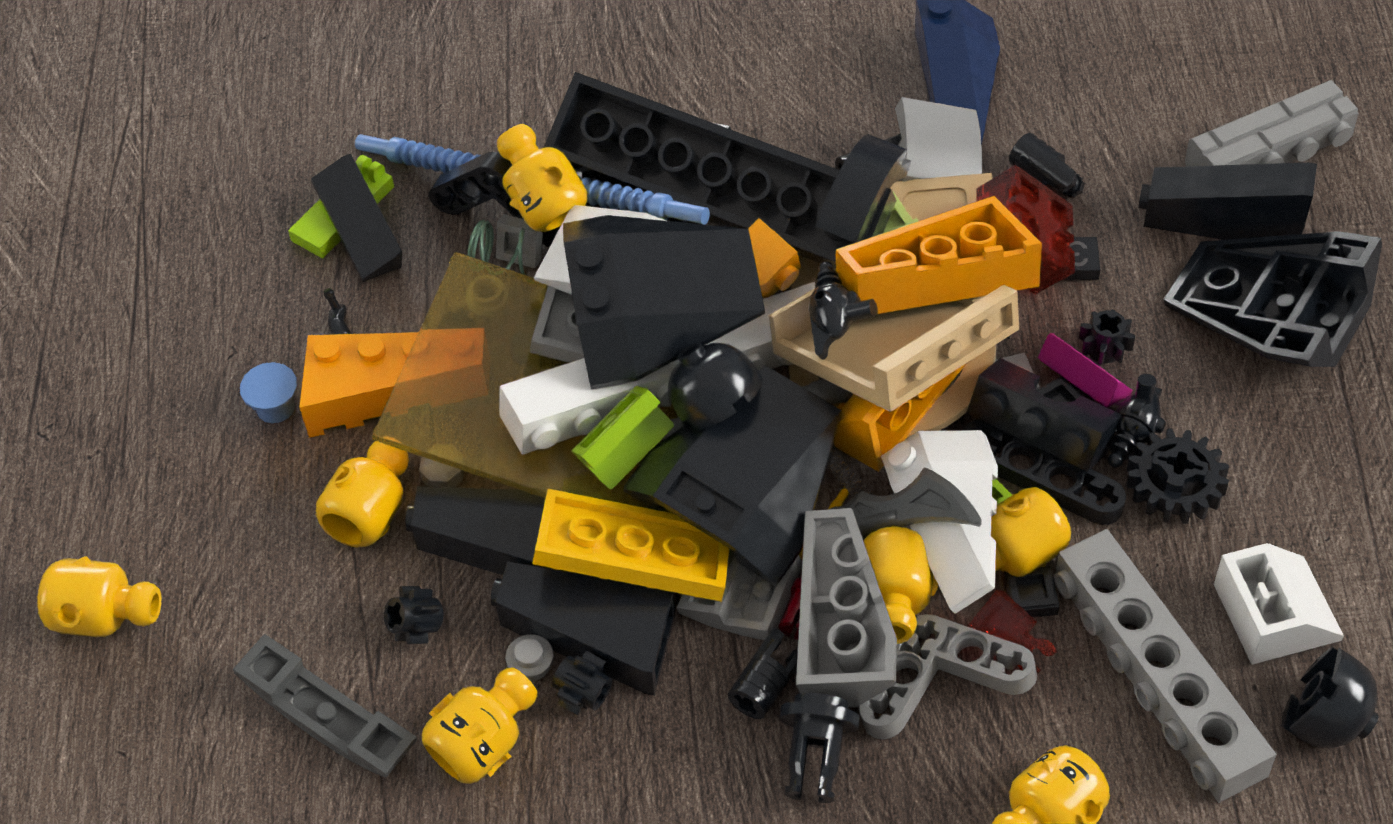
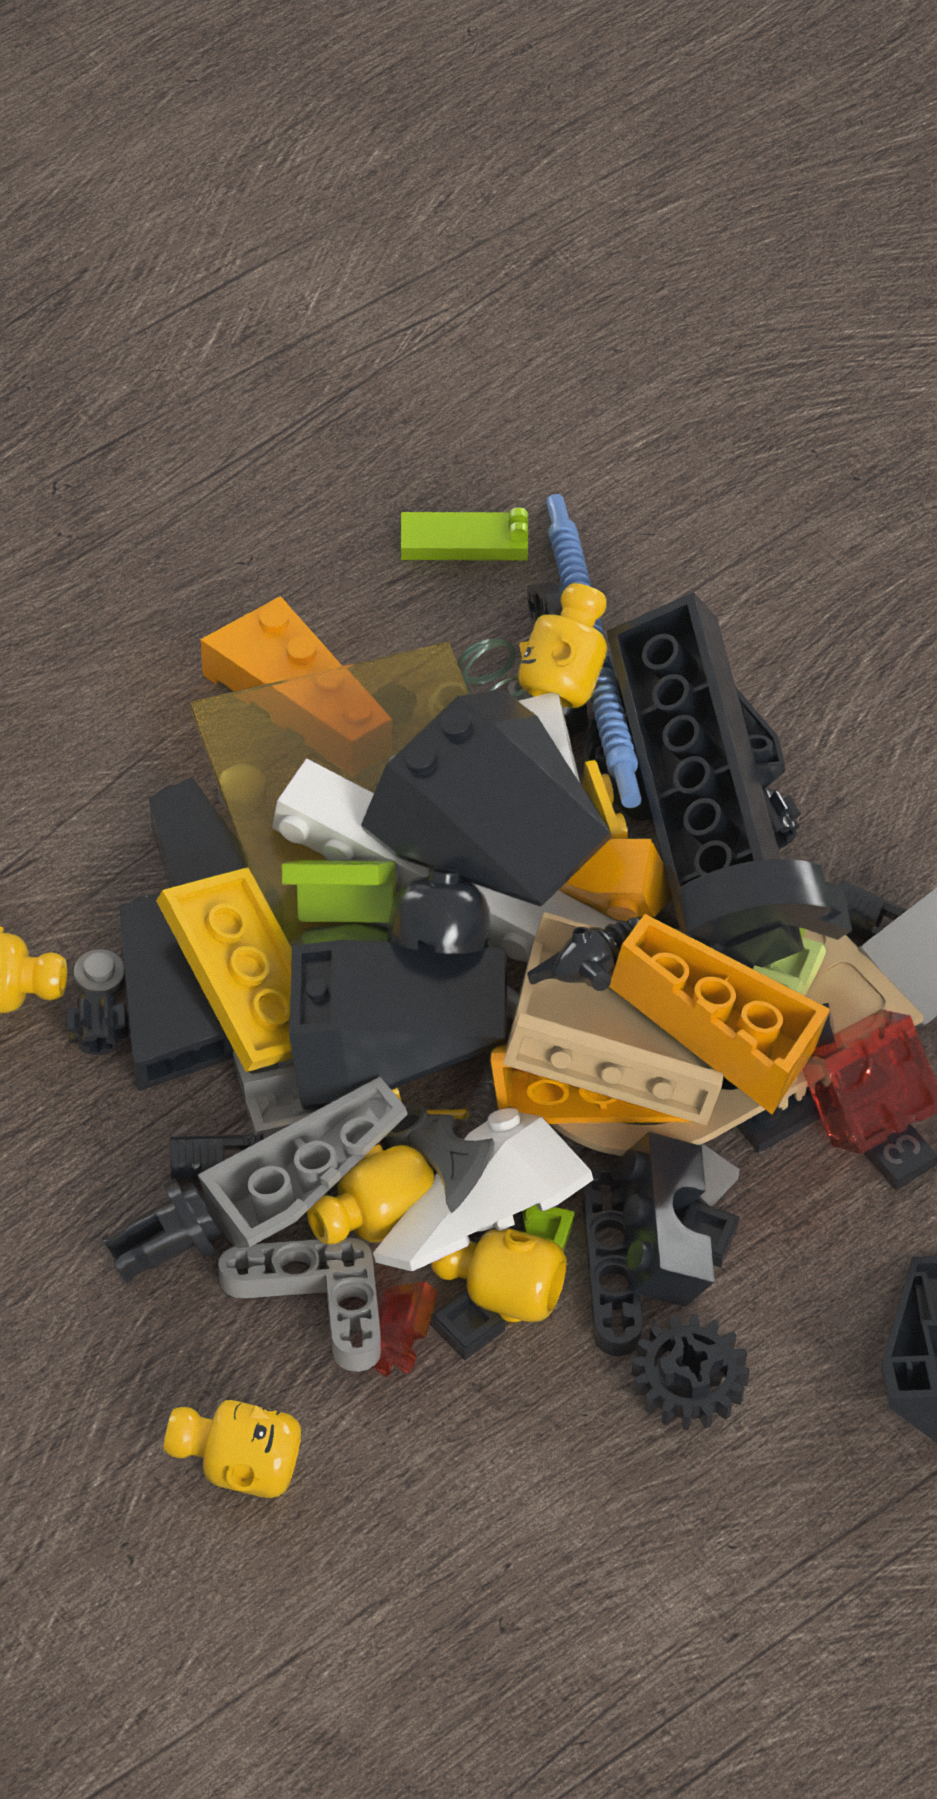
camera: 50 degrees right, 0 degrees up
(270, 391) = (212, 607): medium blue piece -> none
(336, 315) = (337, 614): black piece -> none
(357, 219) = (451, 553): black slope -> none
(363, 496) = (152, 748): yellow piece -> none
(413, 615) = (70, 859): black gear -> none
(1082, 372) = (758, 1230): dark pink slope -> none
(1106, 336) = (813, 1227): black gear -> none
(1138, 419) = (733, 1302): black piece -> none
(1187, 675) = (408, 1581): light grey brick -> none
(1274, 603) = (602, 1525): white slope -> none
(1334, 703) = (518, 1627): black cylinder -> none

